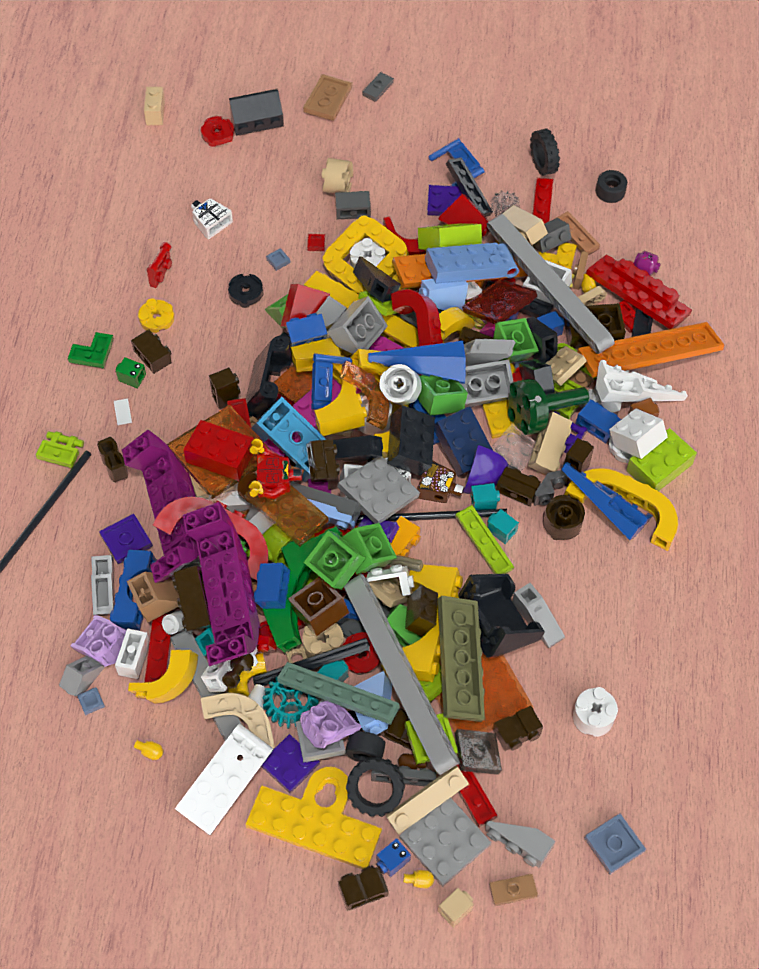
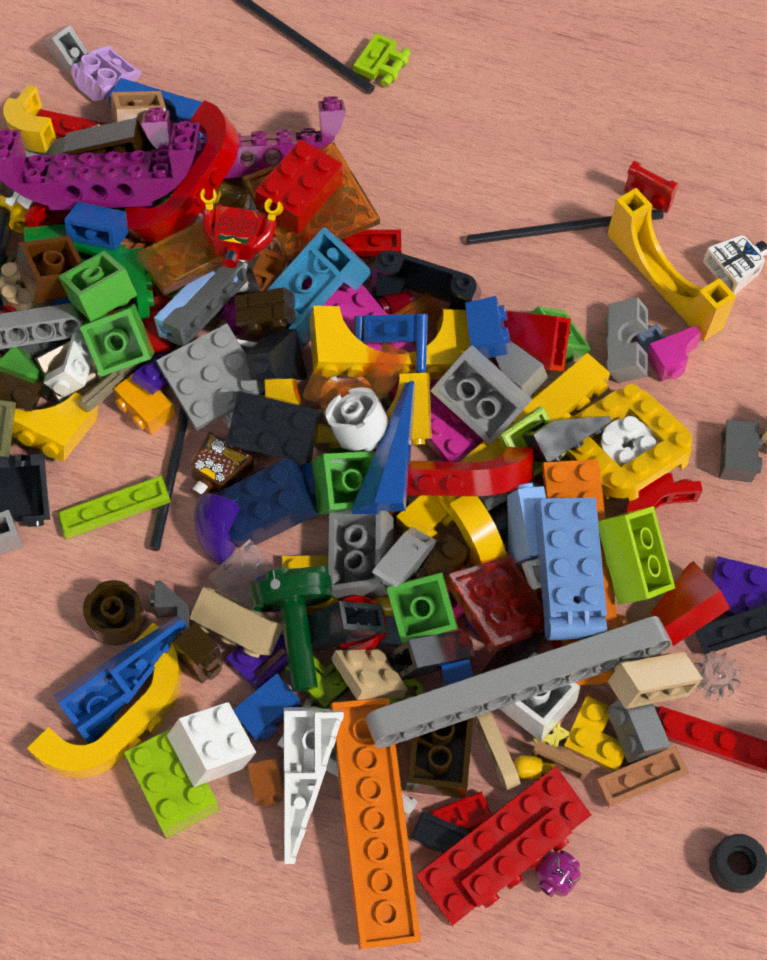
camera: 100 degrees right, 5 degrees up
(90, 701) = (38, 61): sand blue tile -> none
(93, 355) = (521, 110): green plate -> none
(102, 584) = (178, 79): light grey slope -> none
(112, 459) = (356, 99): dark brown brick -> none
(122, 411) = (427, 132): white sticker -> none
(125, 536) = (240, 108): dark purple plate -> none
(130, 372) = (480, 141): green brick -> none
(132, 653) = (74, 96): white brick -> none
(151, 351) = (510, 166): dark brown brick -> none
(154, 307) = (573, 170): yellow plate -> none
(195, 316) = (548, 229): none -> black piece
(224, 387) = (425, 231): dark brown brick -> none
(249, 297) = (594, 301): black plate -> none
(256, 227) = (634, 235): none -> yellow arch
(271, 270) = (624, 322): none -> light grey arch
(291, 243) = (669, 354): none -> dark pink arch
(316, 242) = (677, 394): red tile -> none
(484, 496) = (179, 520): teal brick -> none
(502, 526) = (129, 533): teal brick -> none
(518, 485) = (187, 568): dark brown brick -> none

